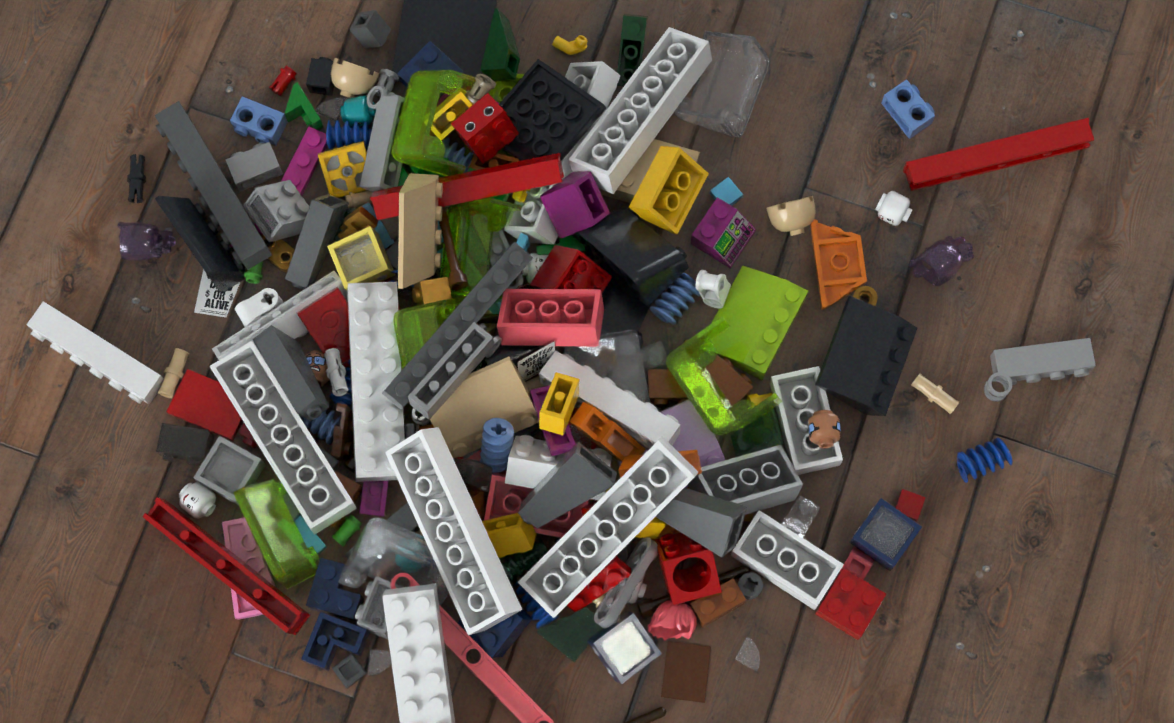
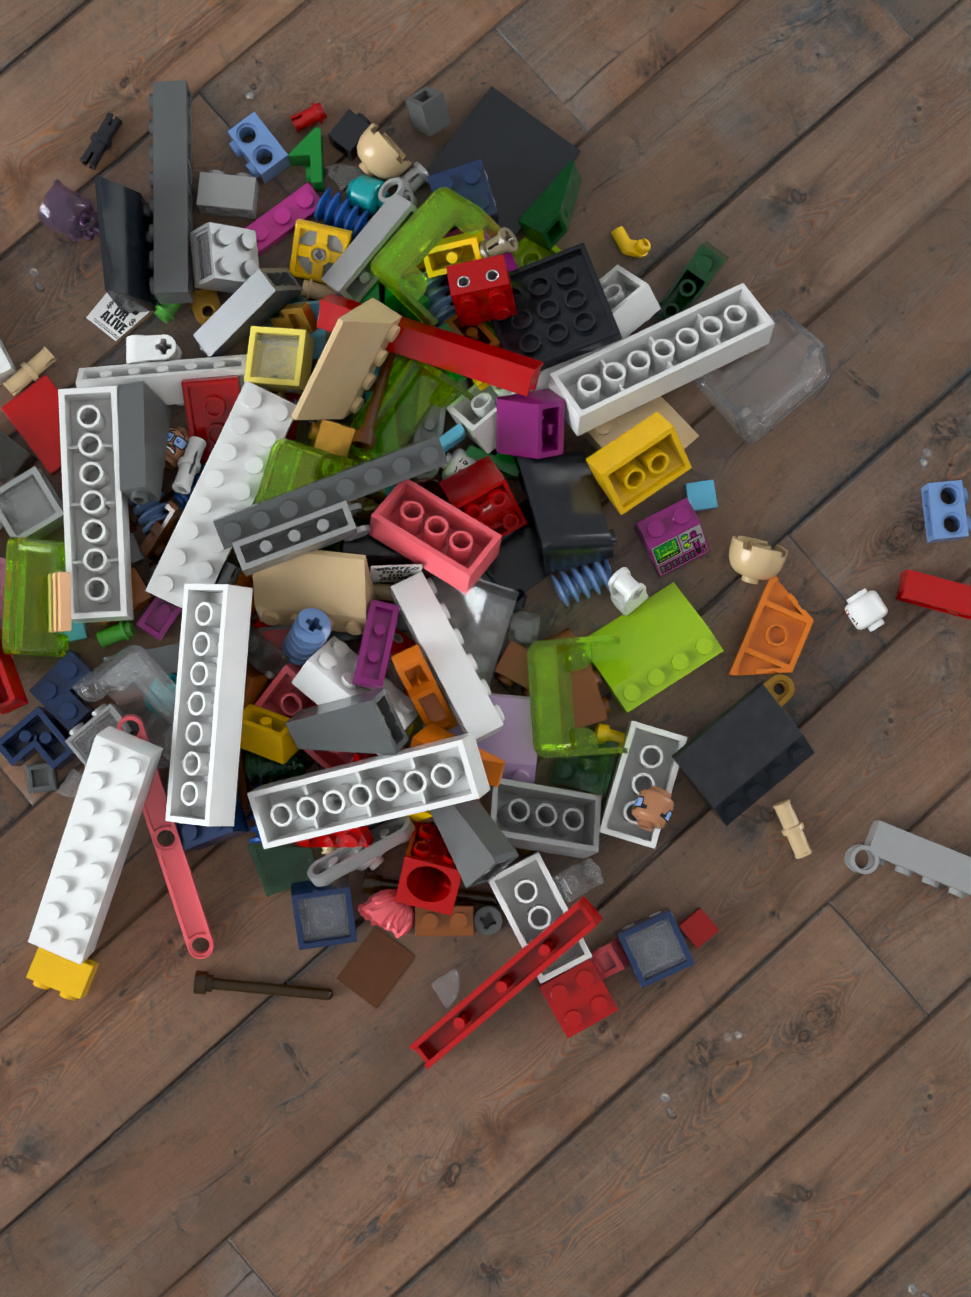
camera: 25 degrees right, 10 degrees up
(296, 519) = (59, 602): none -> light nougat tile
(559, 403) = (388, 635): yellow brick -> none
(790, 619) = (507, 981): none -> red tile
(944, 258) = (885, 694): clear purple piece -> none
(982, 458) = (801, 924): blue piece -> none

